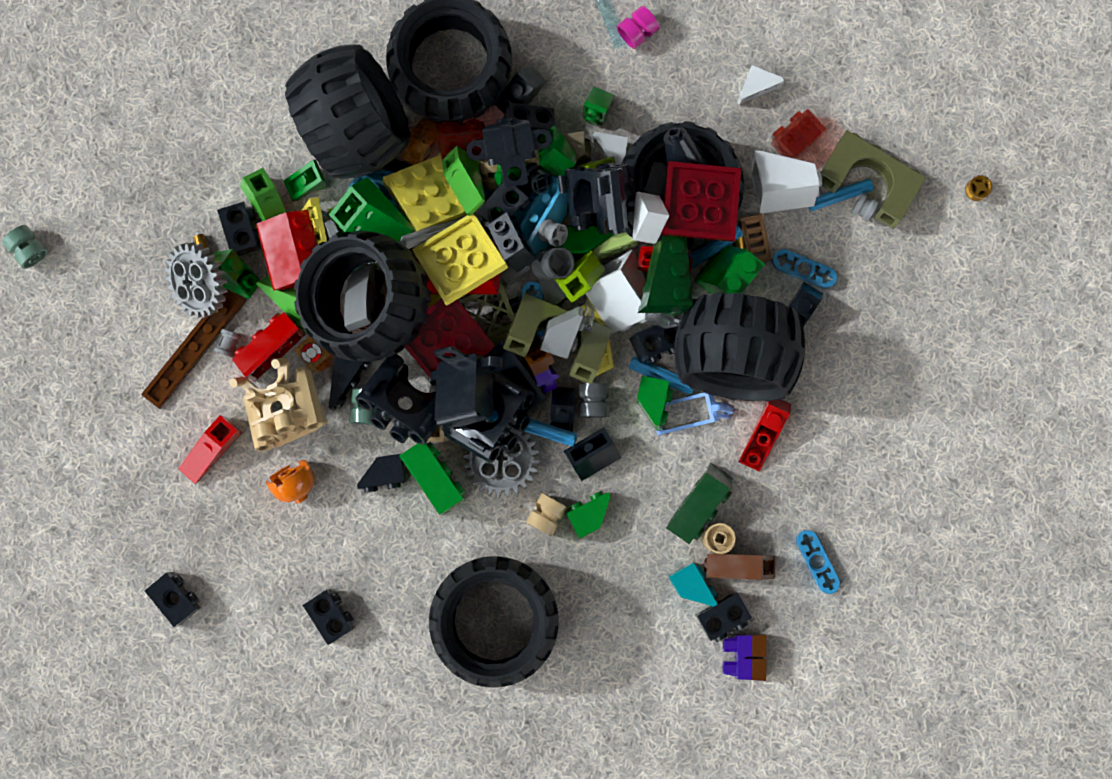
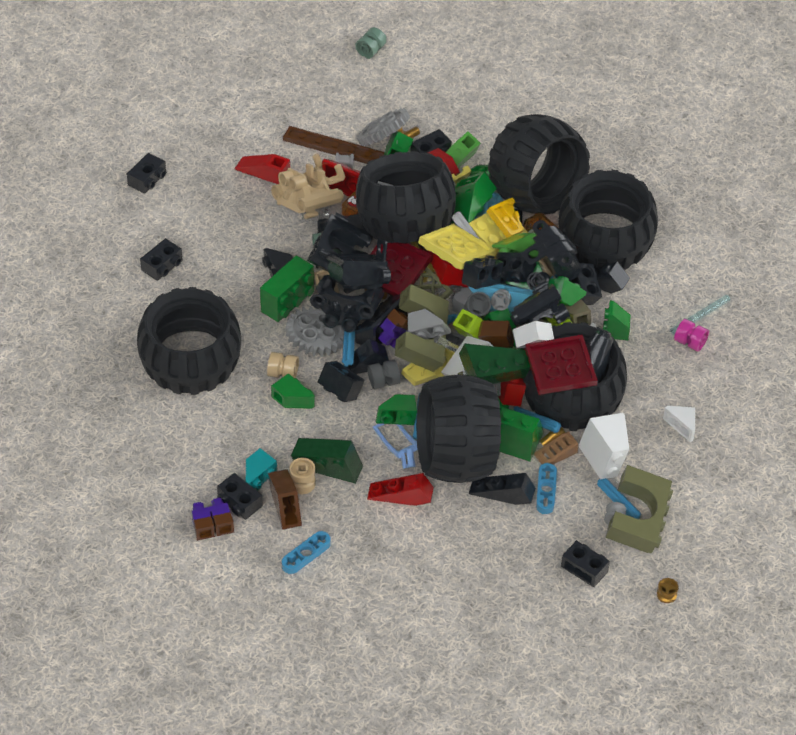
camera: 75 degrees right, 35 degrees down
(292, 483) = (254, 215): orange cylinder -> none
(418, 181) = (506, 217): none -> yellow wing
(603, 257) = (497, 333): none -> reddish brown slope
(798, 135) = (653, 456): clear red brick -> none
(923, 266) = (588, 566): none -> black brick

